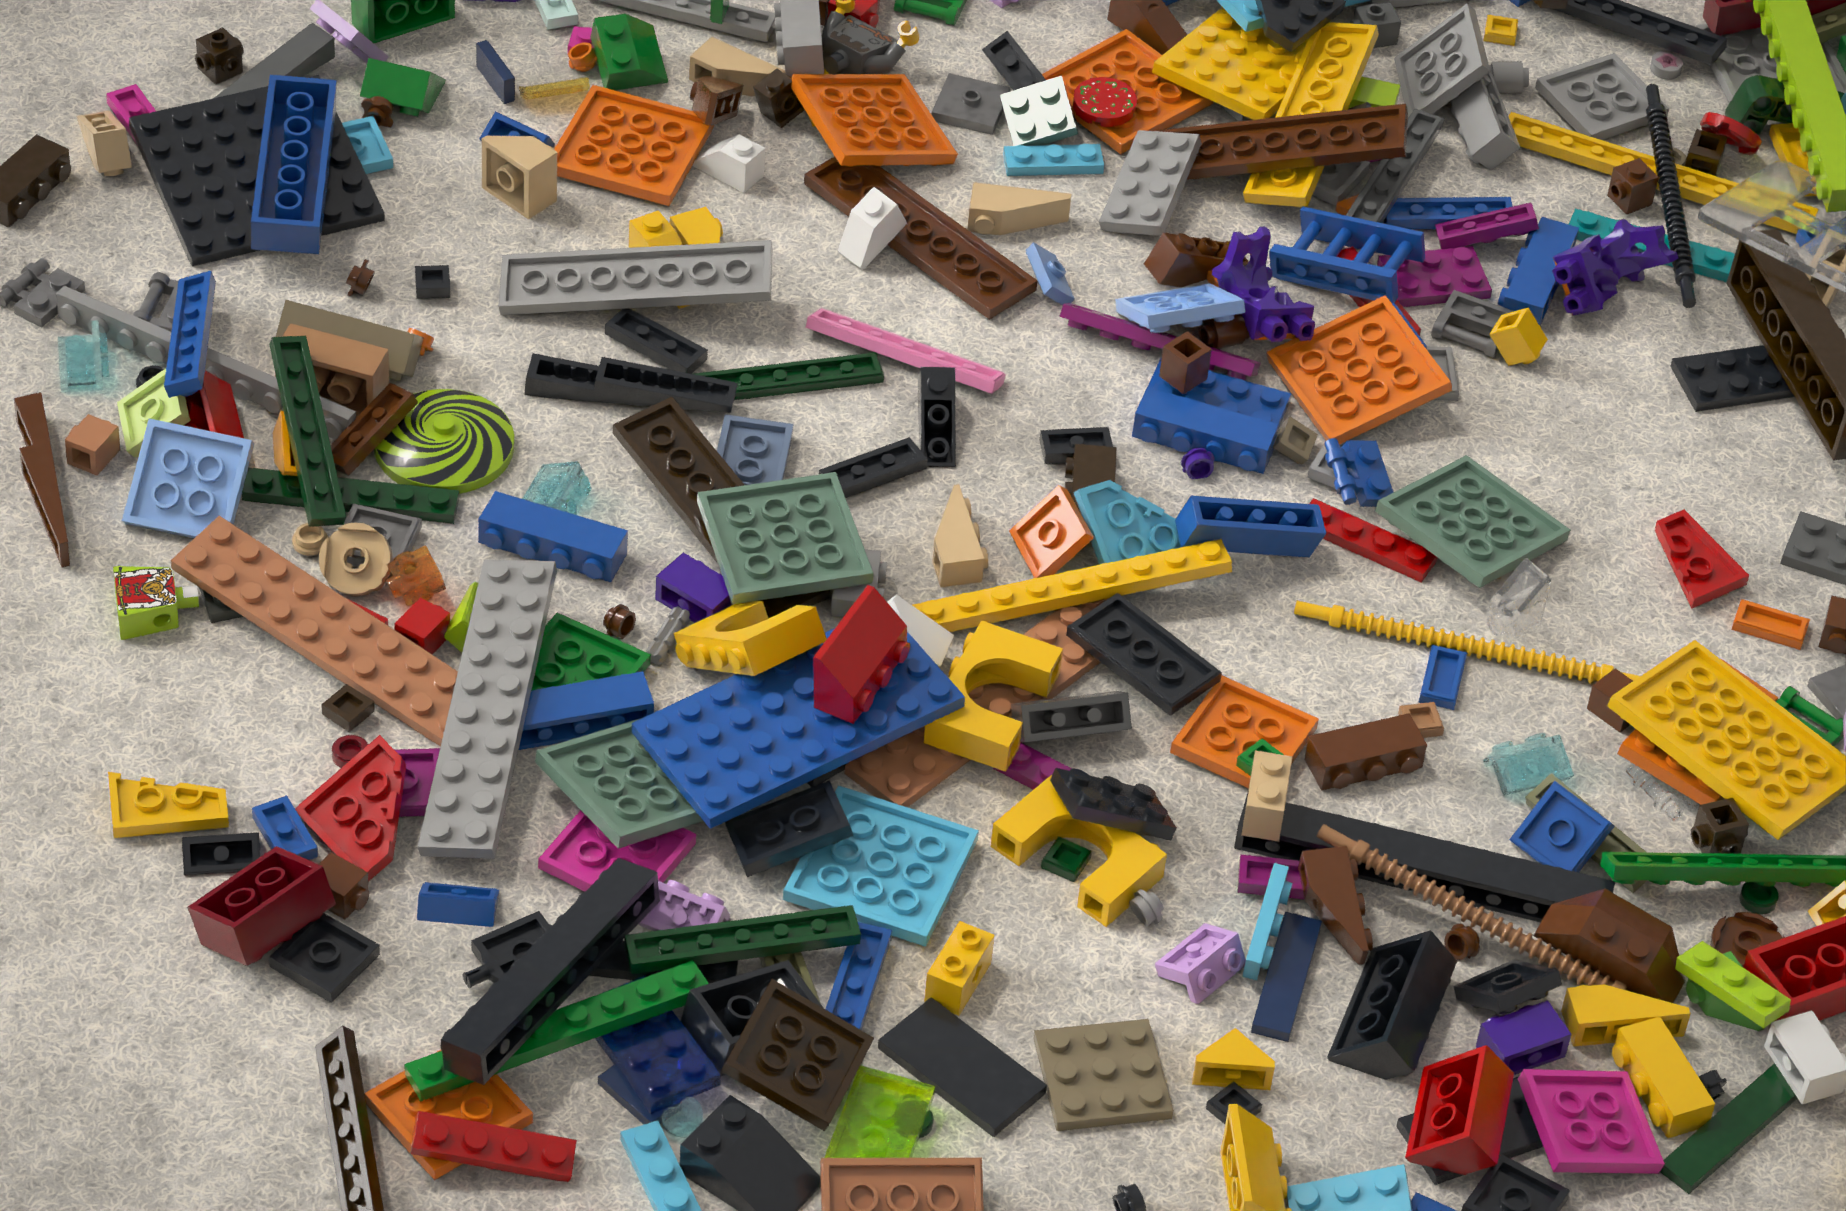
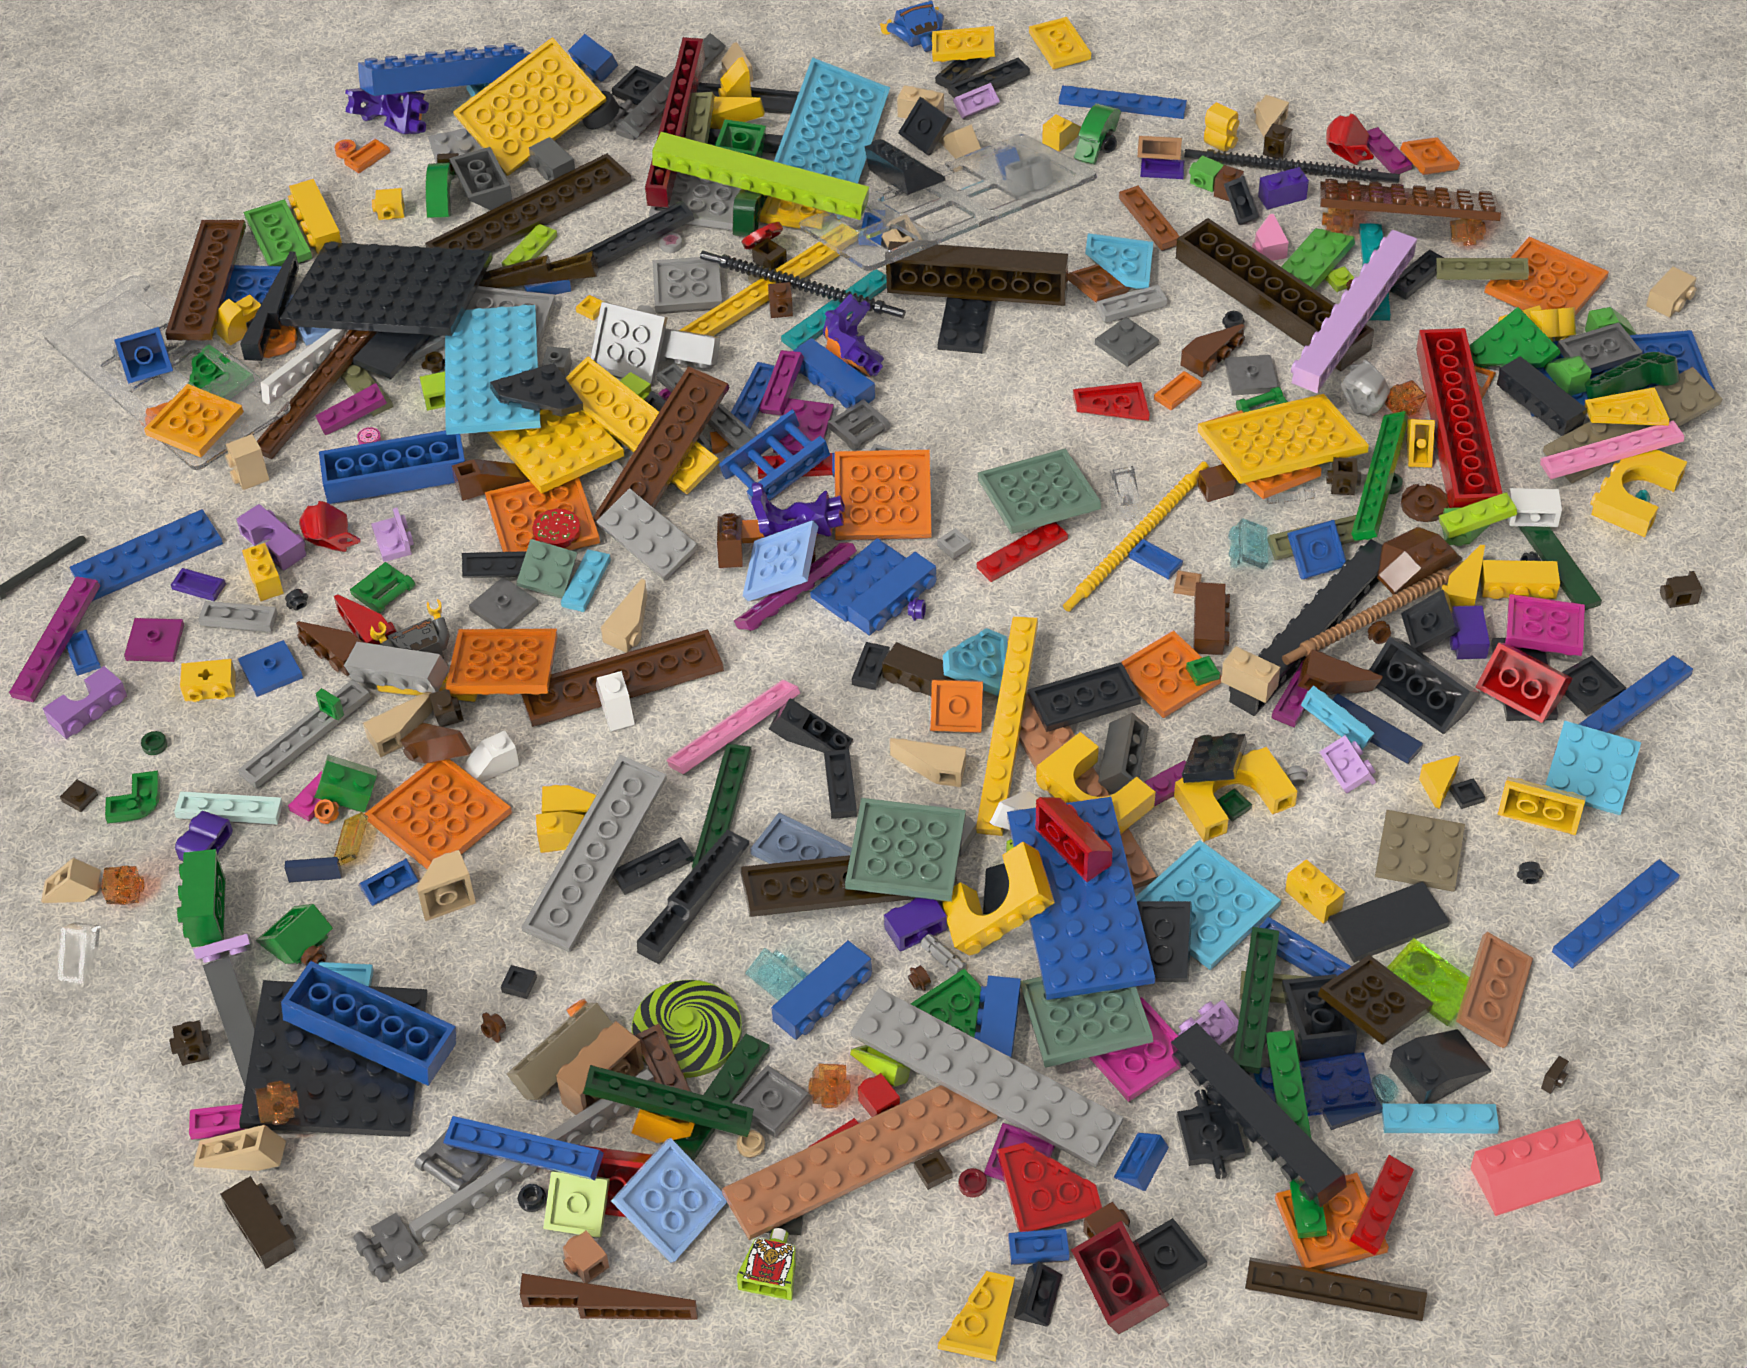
camera: 60 degrees left, 5 degrees up
(81, 361) = (483, 1238): clear light blue bracket -> none
(152, 124) = (267, 1099): none -> clear orange brick
(343, 544) = (781, 1116): tan plate -> none
(1049, 274) = (702, 620): medium blue plate -> none
(1185, 362) = (843, 575): reddish brown brick -> none
(1252, 525) = (1004, 599): blue brick -> none
(1295, 440) = (924, 549): dark tan plate -> none
(1366, 469) = (971, 528): blue plate -> none
(1518, 337) = (890, 405): yellow brick -> none

